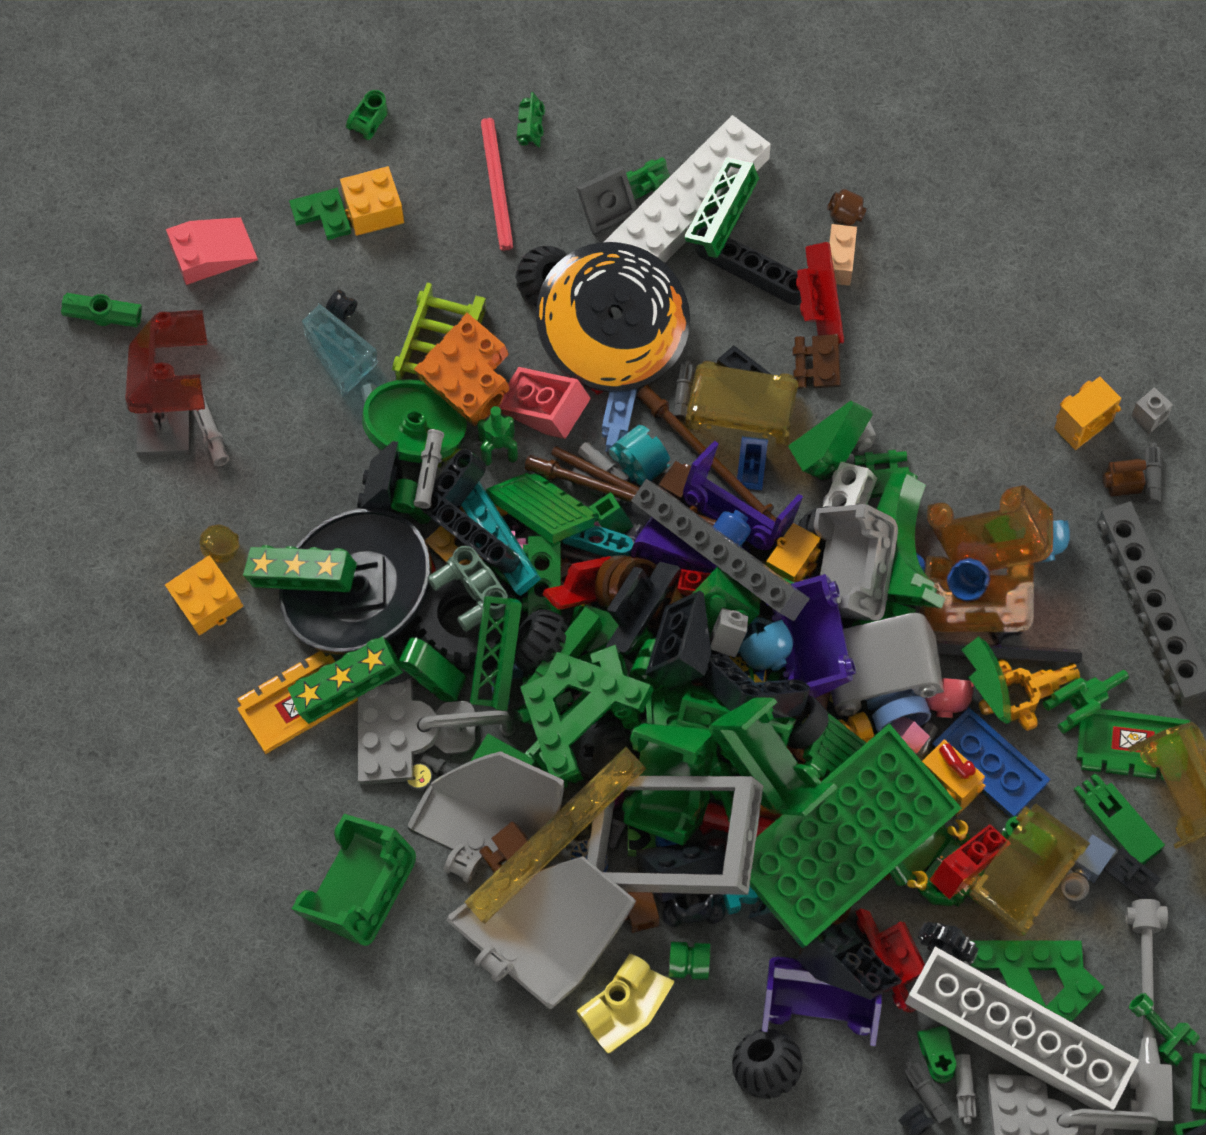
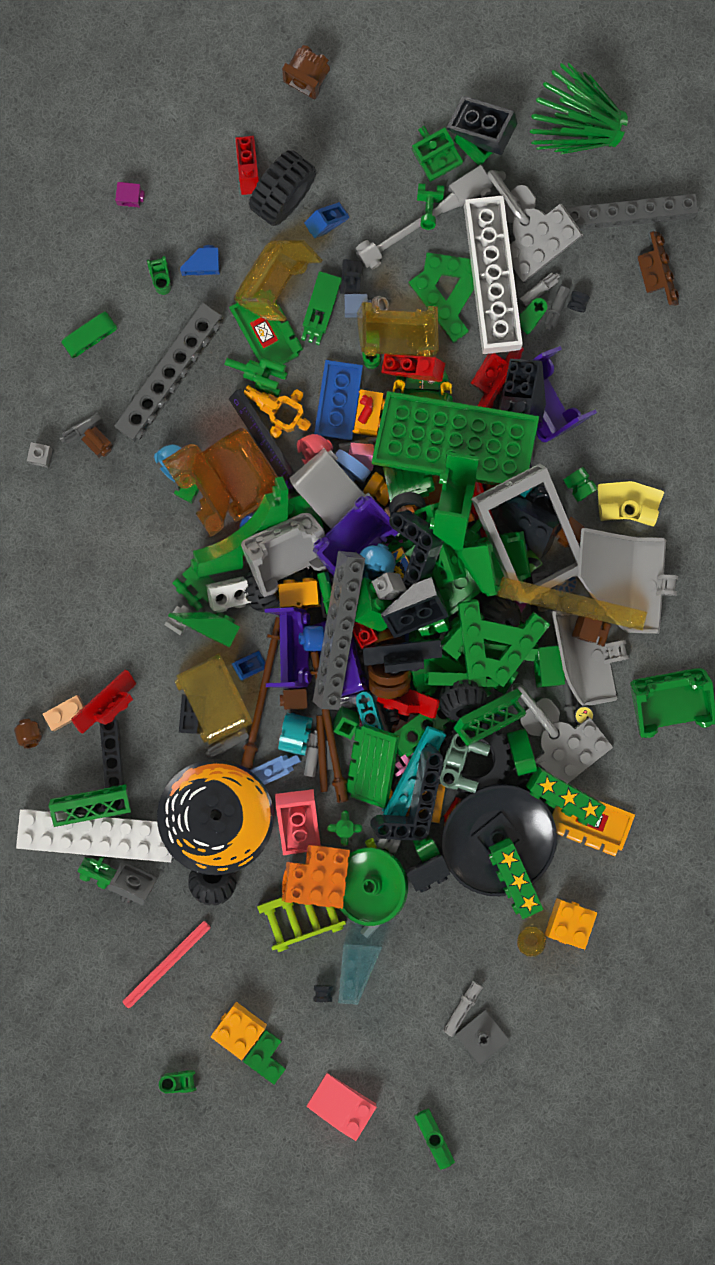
camera: 130 degrees left, 20 degrees up
(153, 385) = (473, 1061): clear red windscreen -> none
(431, 457) = (421, 838): light grey pin -> none
(531, 111) = (98, 981): green hinge -> none
(767, 1063) = (608, 413): black wheel -> none
(825, 361) = (146, 671): reddish brown plate -> none
(948, 939) = (468, 349): black gear -> none
(968, 579) = (236, 485): blue hair -> none
(989, 678) = (294, 429): green slope -> none
(1087, 412) = (72, 489): light orange brick -> none

